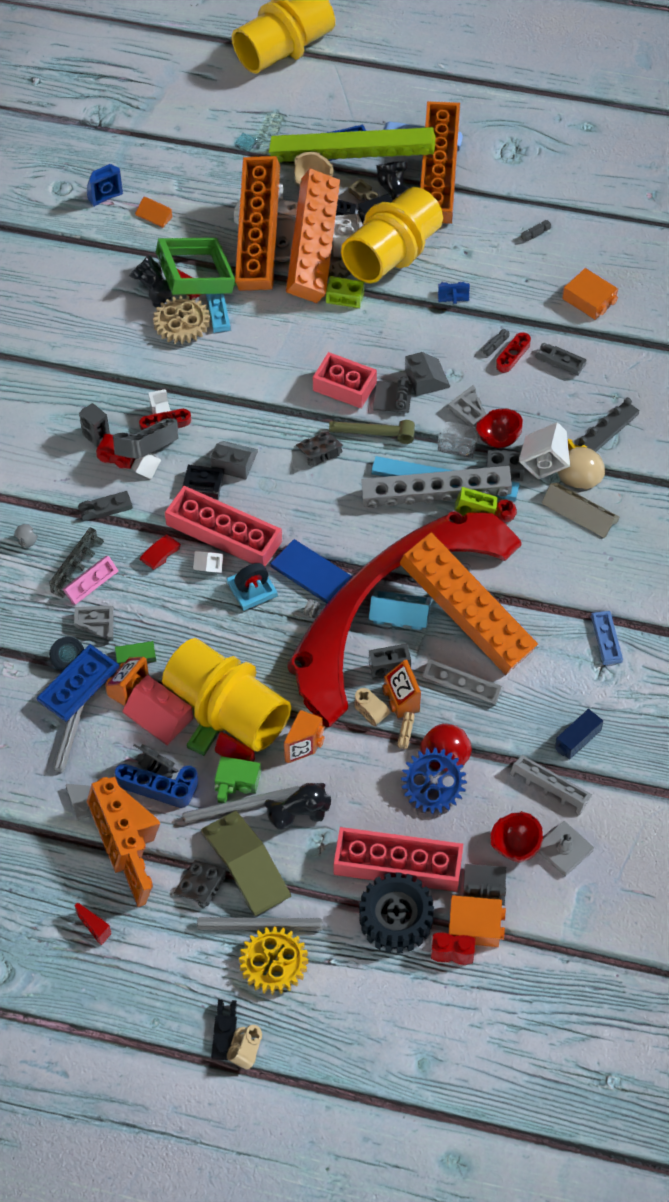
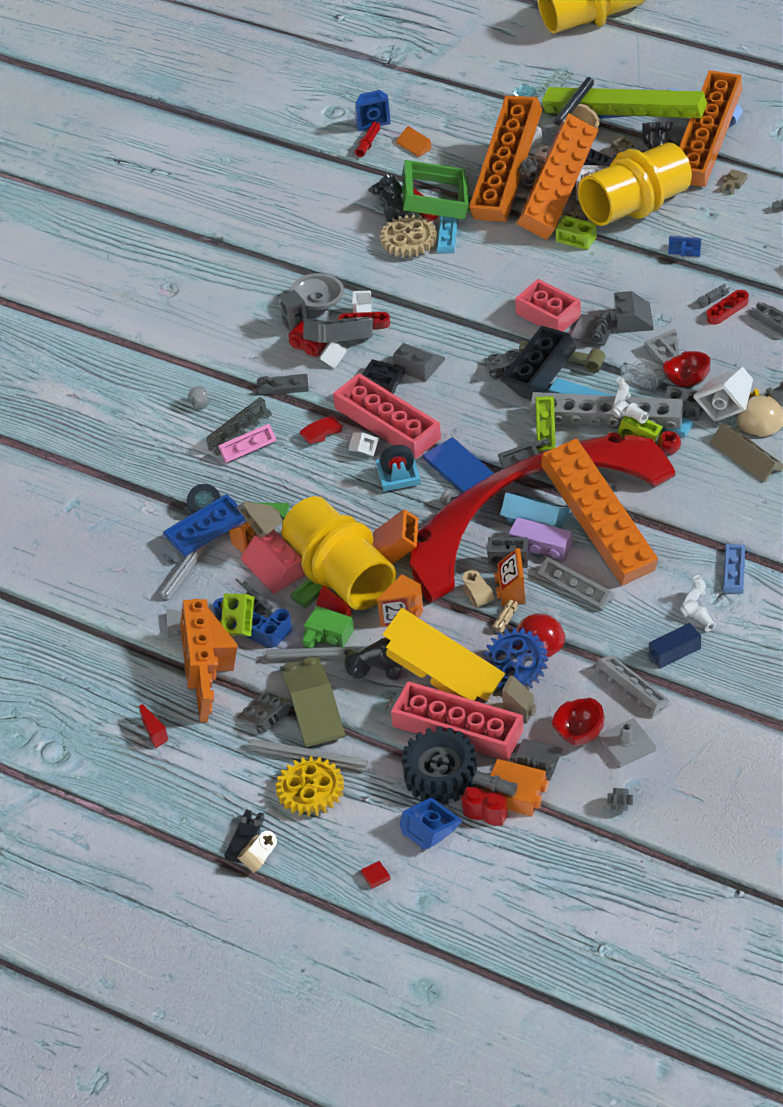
camera: 20 degrees right, 10 degrees down
(95, 620) = (240, 478): light grey wing -> none
(106, 218) = (366, 142): none -> red axle
(112, 395) = (319, 290): none -> light grey dish
(142, 672) = (260, 517): none -> dark tan slope
(151, 783) = (242, 614): none -> lime brick
(278, 664) = (397, 536): none -> orange brick
(284, 232) = (529, 169): none -> dark grey gear
(304, 151) = (574, 100): none -> black axle
(355, 793) = (431, 652): none -> yellow slope
(356, 444) = (539, 362): none -> black slope
(367, 1045) = (375, 874): none -> red tile
(369, 549) = (521, 452): none -> dark grey hinge
(382, 511) = (545, 421): none -> lime tile
(405, 979) = (428, 823): none -> blue slope
(419, 638) = (543, 539): none -> lavender brick
(451, 825) = (518, 699): none -> dark tan slope
(457, 486) = (622, 408): none -> white pin
(460, 925) = (495, 783): none -> dark grey pin
(476, 213) = (733, 180): none -> dark tan plate
(580, 914) = (620, 799): none -> dark grey gear
(582, 690) = (691, 608): none -> white pin

